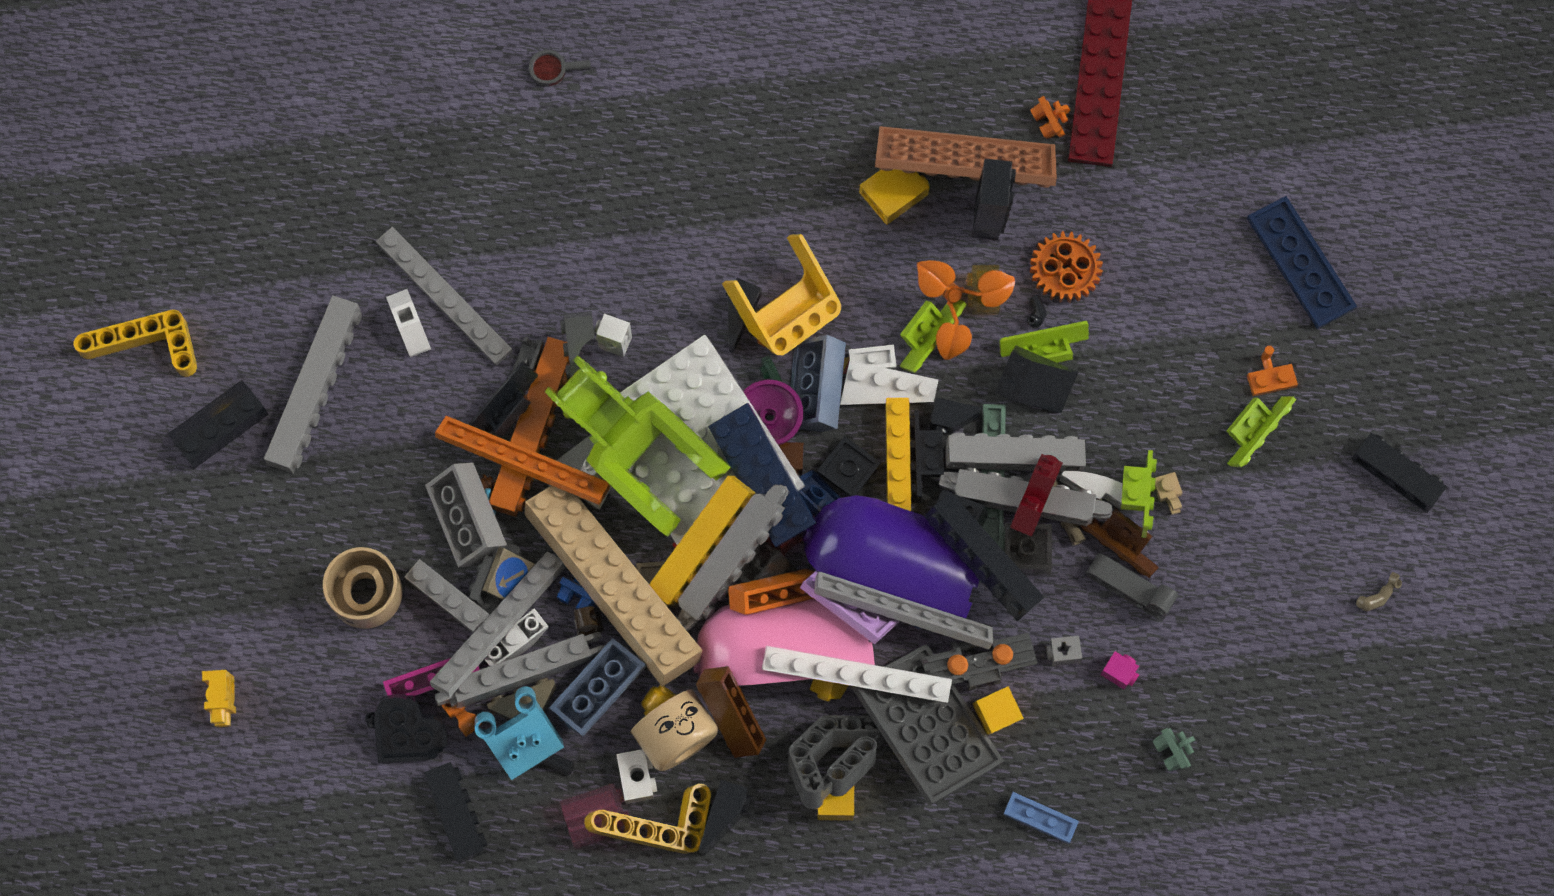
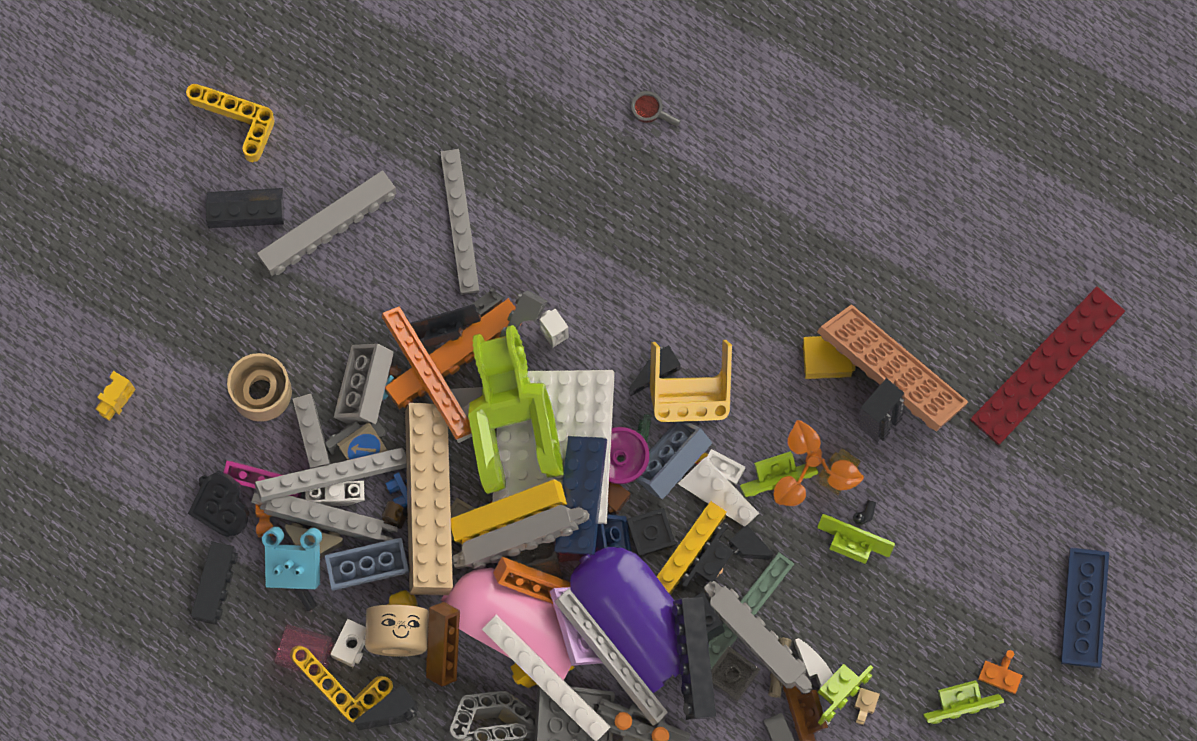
camera: 35 degrees right, 0 degrees up
(408, 323) = (421, 224): white slope -> none
(1012, 452) = (774, 602): light grey brick -> none
(1036, 380) = (826, 560): black slope -> none
(1036, 494) = (763, 640): dark red arch -> none
(1053, 126) = (977, 388): orange hips -> none
(1079, 253) = (892, 498): orange gear -> none

